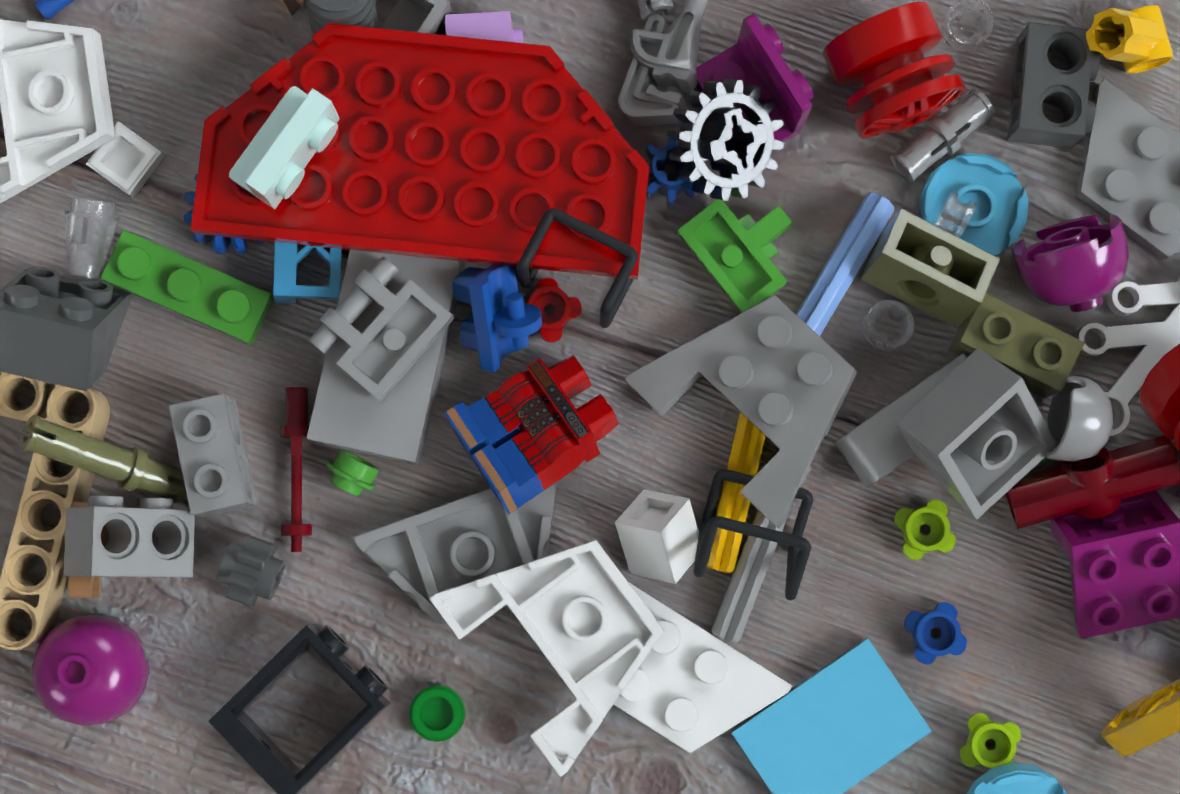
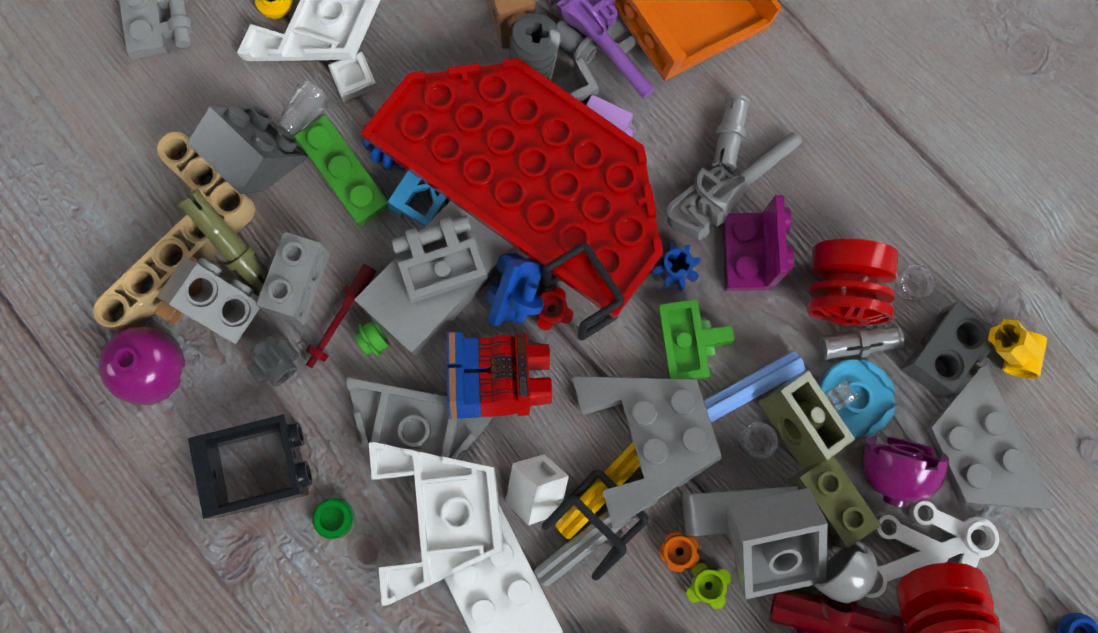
camera: 30 degrees right, 5 degrees down
(285, 144) = (446, 113): light aqua bracket -> none
(720, 134) = (722, 248): gear -> none
(874, 524) = (679, 562): none -> orange plate

